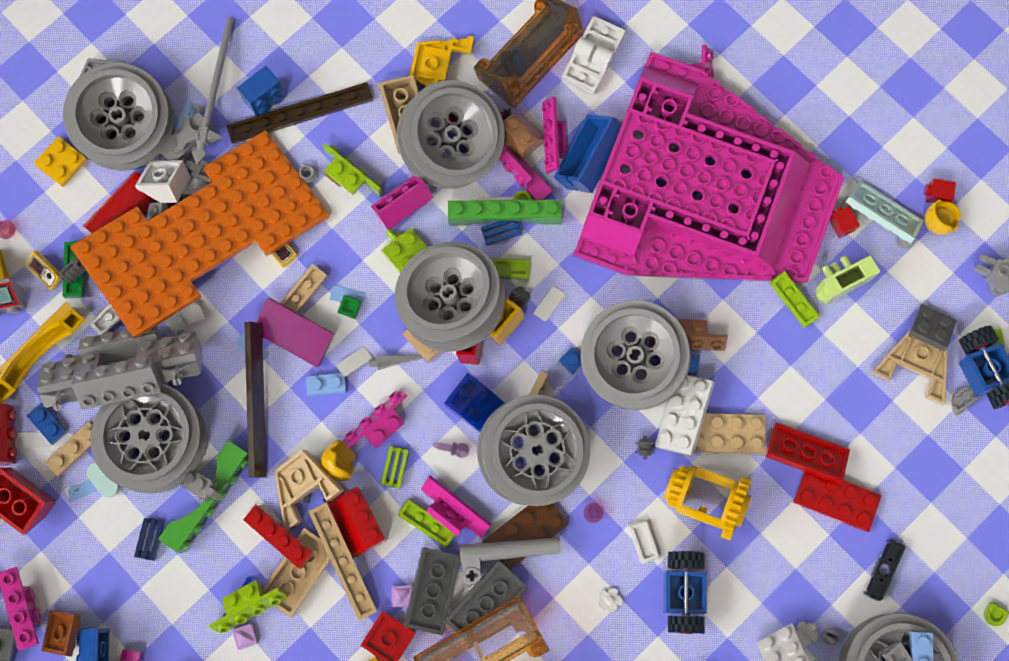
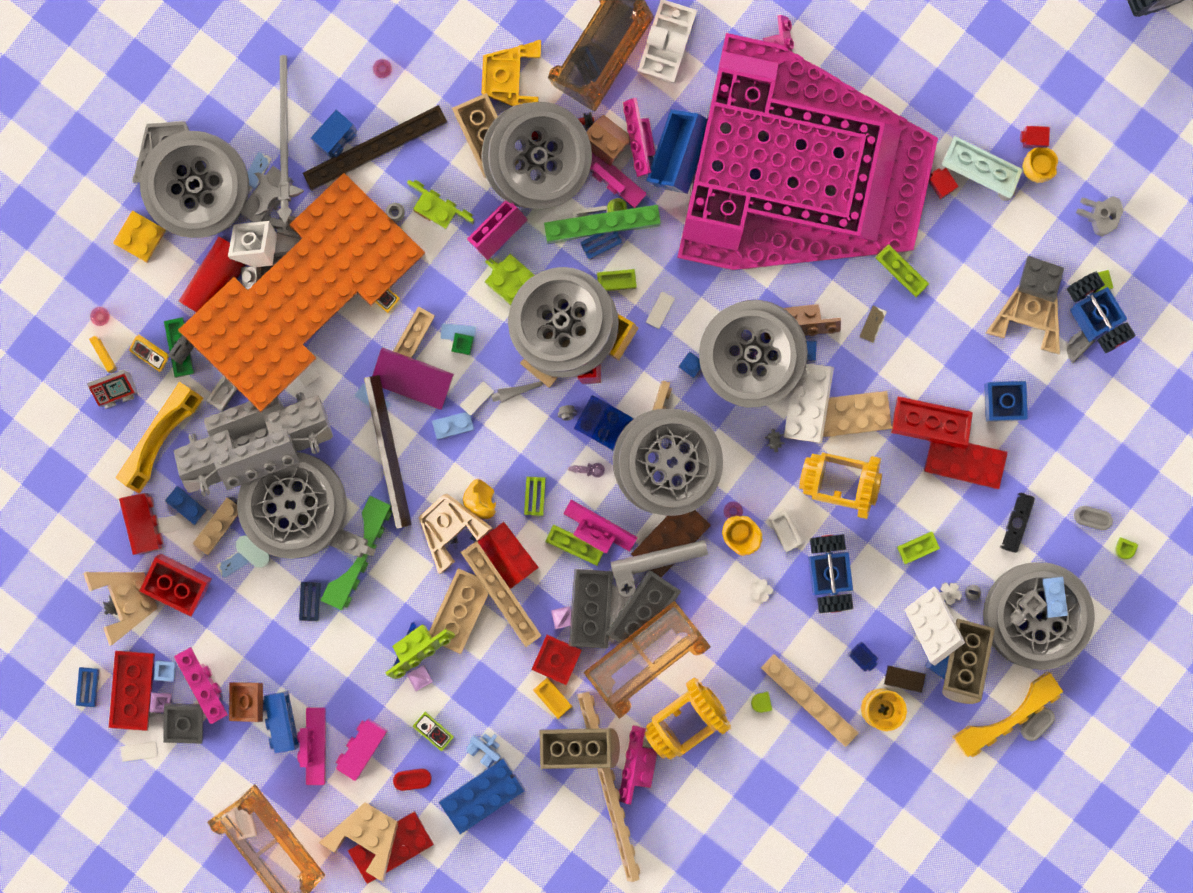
camera: 15 degrees left, 10 degrees up
(278, 537) = (434, 580): red plate -> none
(320, 38) = (382, 62): none -> clear pink plate
(379, 424) = (512, 456): dark pink bracket -> none
(441, 388) = (567, 412): none -> light grey plate
(519, 296) = (630, 308): dark grey wheel -> none
(599, 538) = (742, 535): none -> yellow piece
(758, 348) = (873, 324): none -> dark tan sticker
(778, 580) = (918, 547): none -> lime plate
(845, 281) = (950, 244): yellowish green piece -> none
(886, 443) = (1006, 401): none -> blue brick
(963, 577) = (1093, 518): none -> light grey tile

